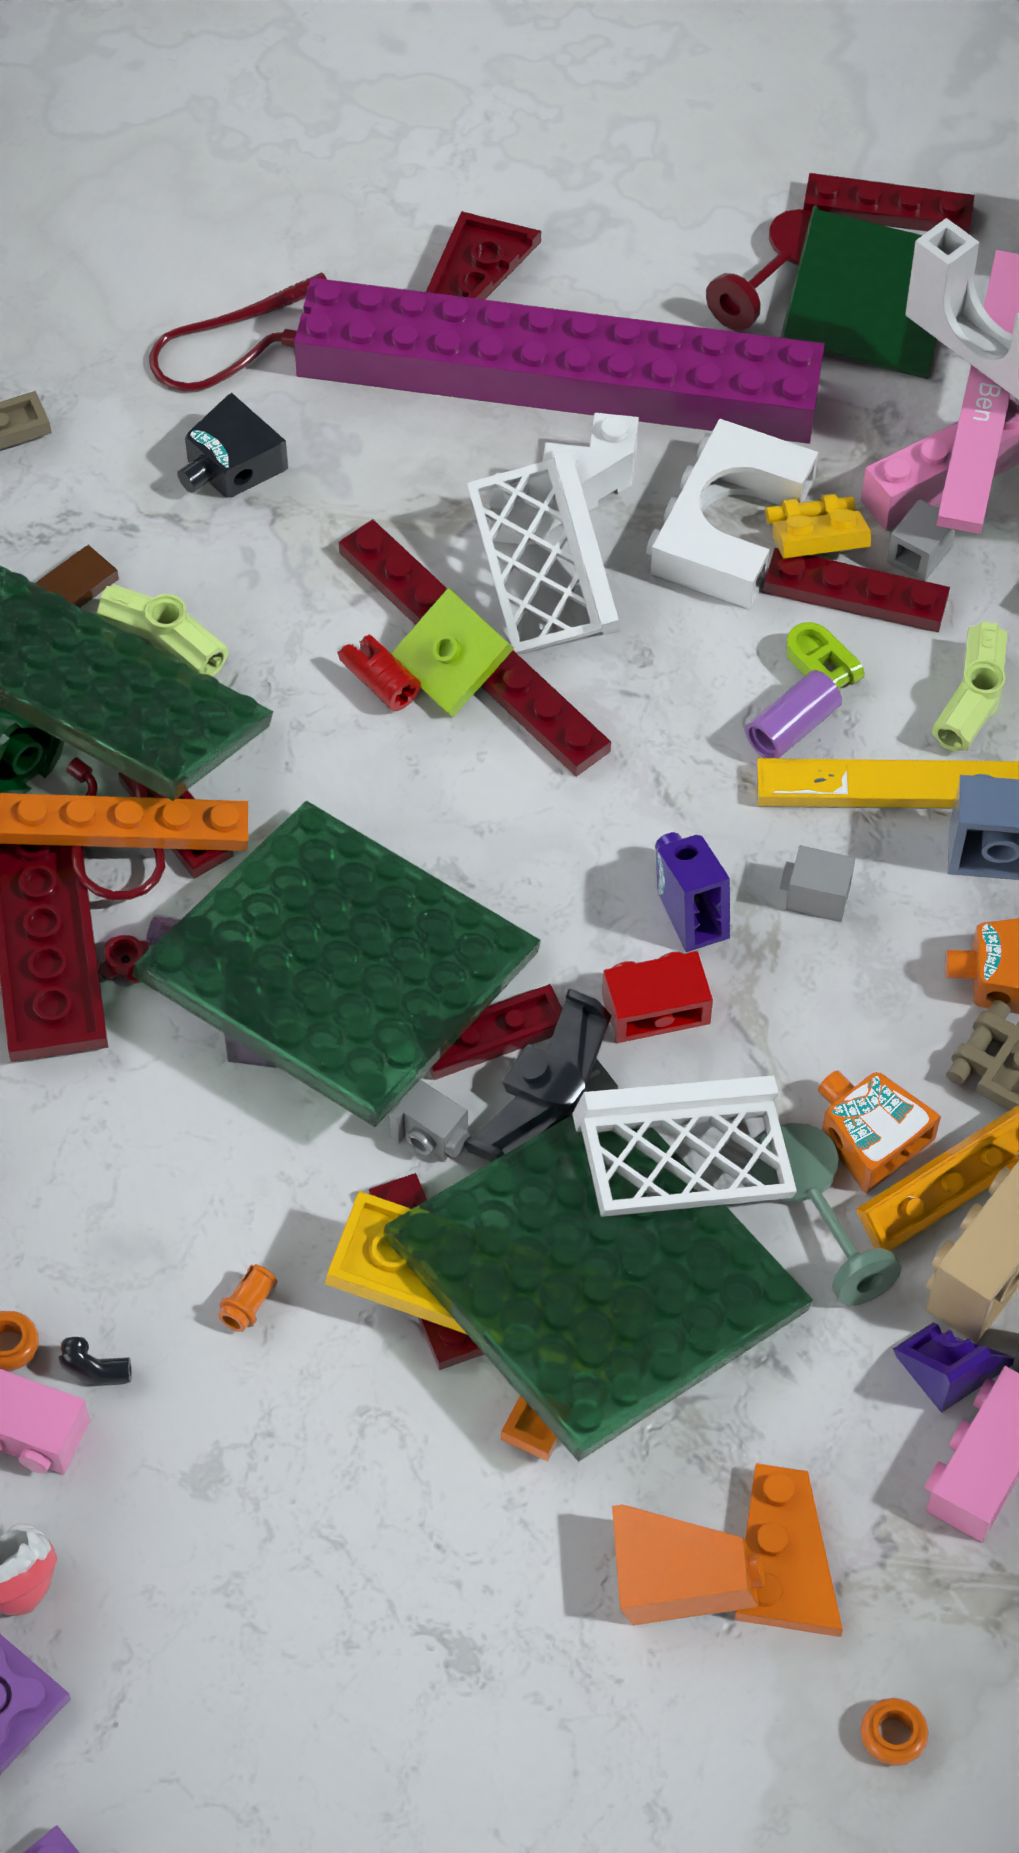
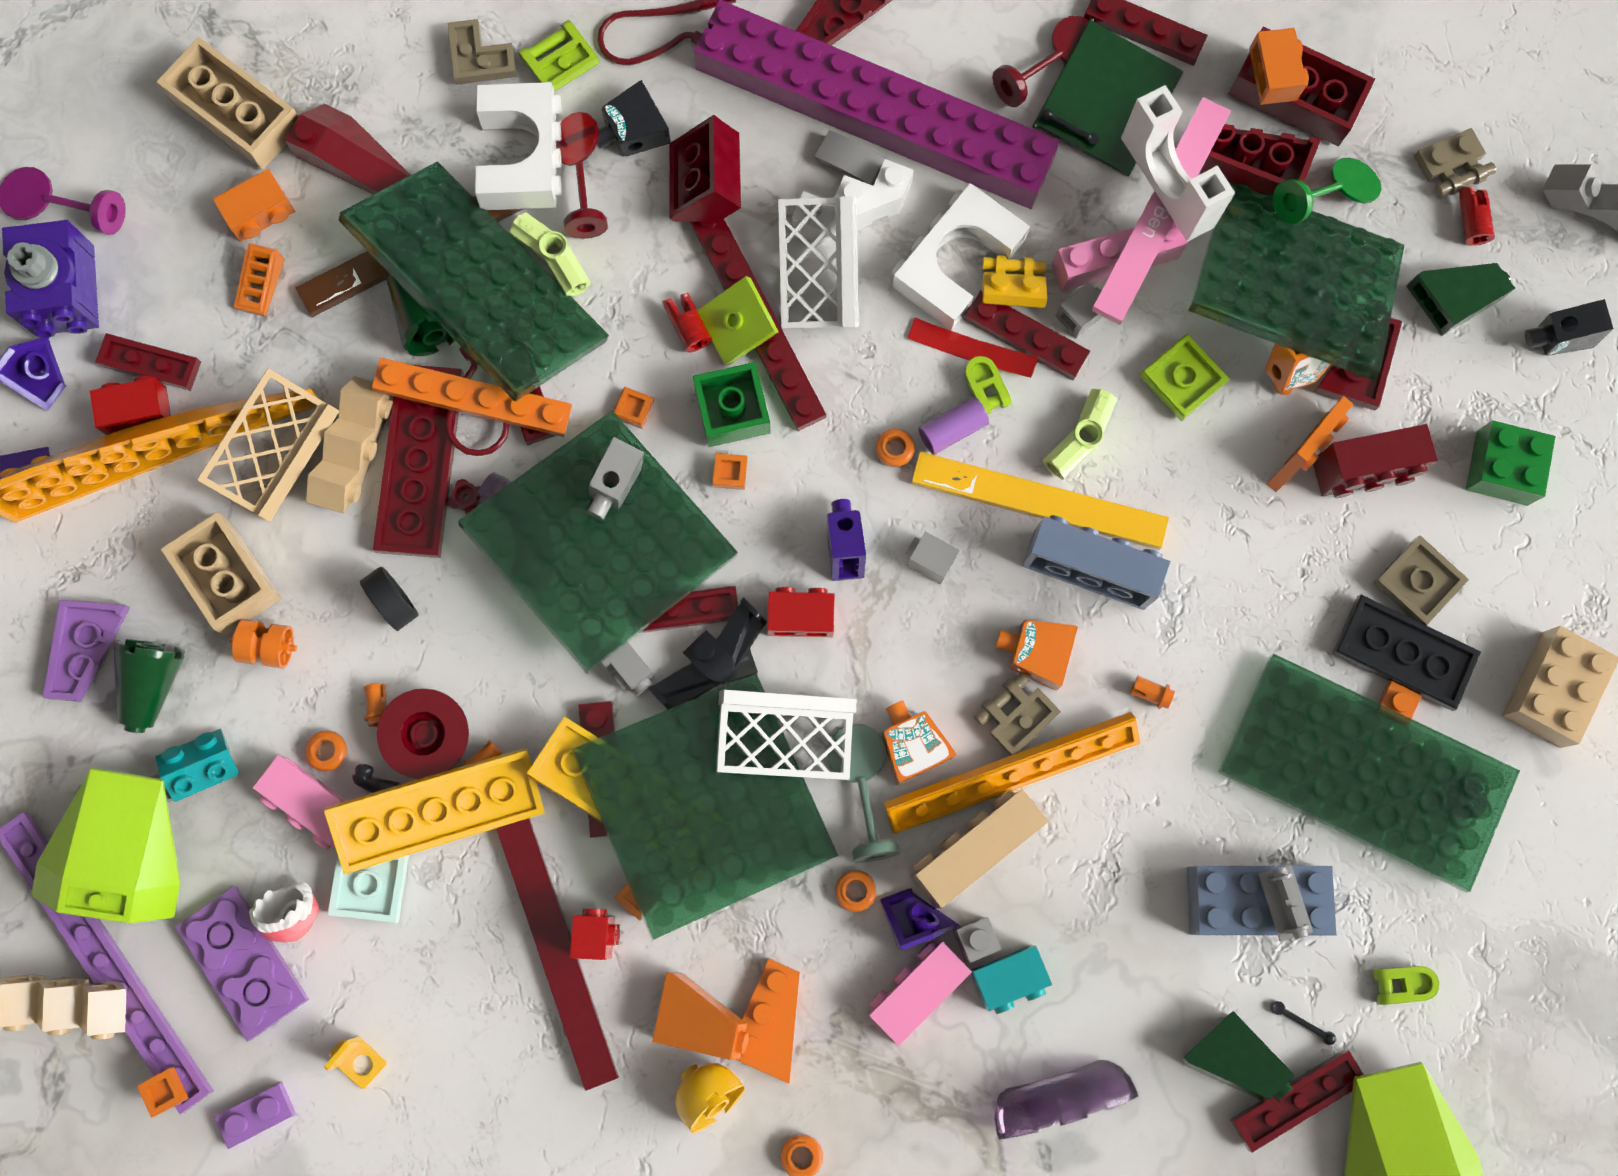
camera: 10 degrees right, 20 degrees up
(53, 1104) = (389, 598): none -> black tyre
(71, 1269) = (375, 703): none -> orange pin
(84, 463) = (533, 180): none -> white arch
(109, 406) = (564, 63): none -> lime plate
(120, 1500) = (369, 892): none -> light aqua plate
(151, 1273) = (422, 733): none -> dark red hat
(154, 492) = (577, 143): none -> dark red piece
(154, 1750) = (346, 1052): none -> yellow bracket
(198, 1368) = (433, 810): none -> yellow plate
(335, 793) = (633, 407): none -> orange tile
(339, 870) = (618, 467): none -> light grey torso
(351, 484) = (705, 173): none -> dark red slope
(439, 1540) = (554, 946): none -> dark red tile
(476, 753) = (732, 404): none -> green brick
(489, 1481) = (594, 935): none -> red brick
(498, 841) = (730, 471): none -> orange plate
(534, 425) = (849, 157): none -> light grey slope
(719, 778) = (893, 460): none -> orange piece
(726, 1665) = (705, 1094): none -> yellow cylinder
(779, 623) = (968, 348): none -> red sticker
(849, 1362) = (841, 896): none -> orange piece
(863, 341) = (1091, 138): none -> black hinge

